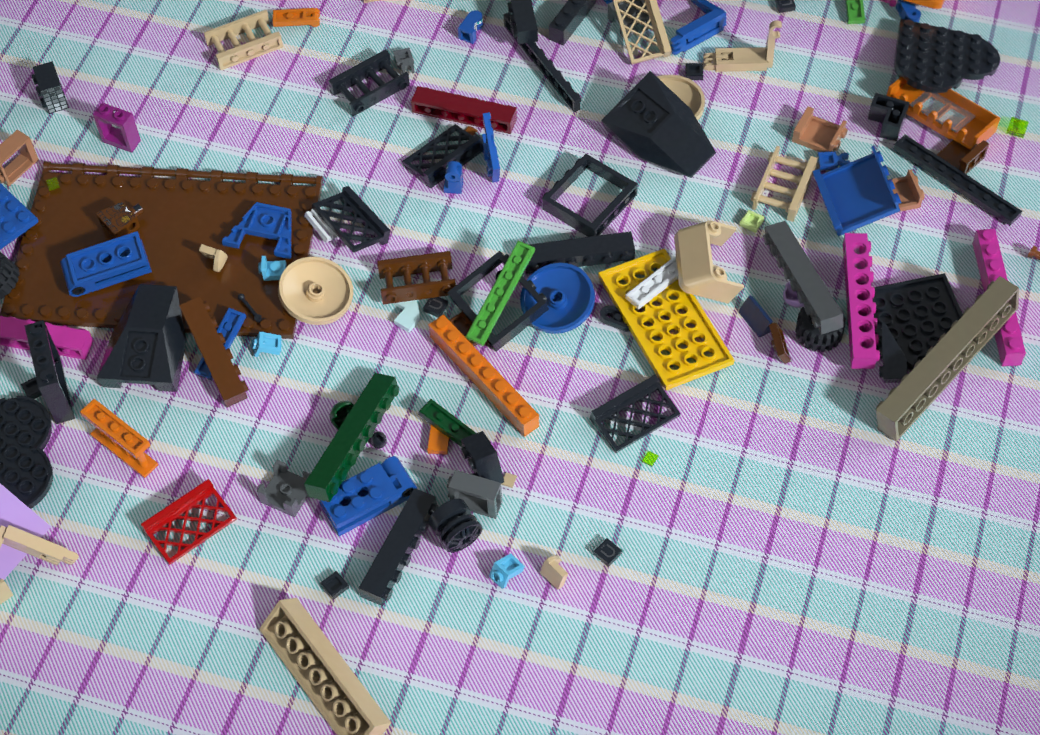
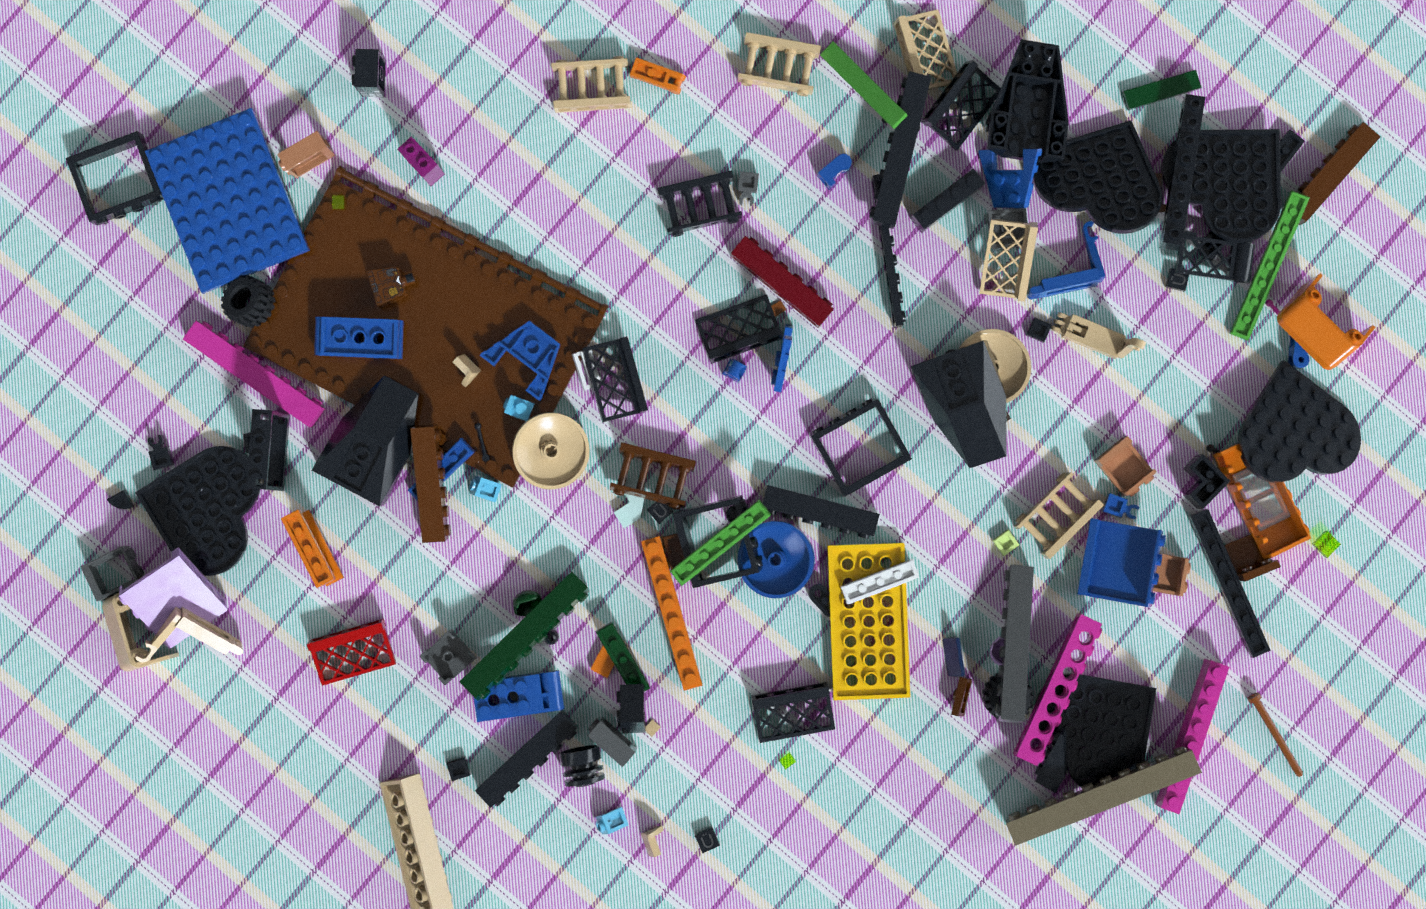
camera: 20 degrees right, 30 degrees up
(695, 263) = (924, 579): tan windscreen -> none

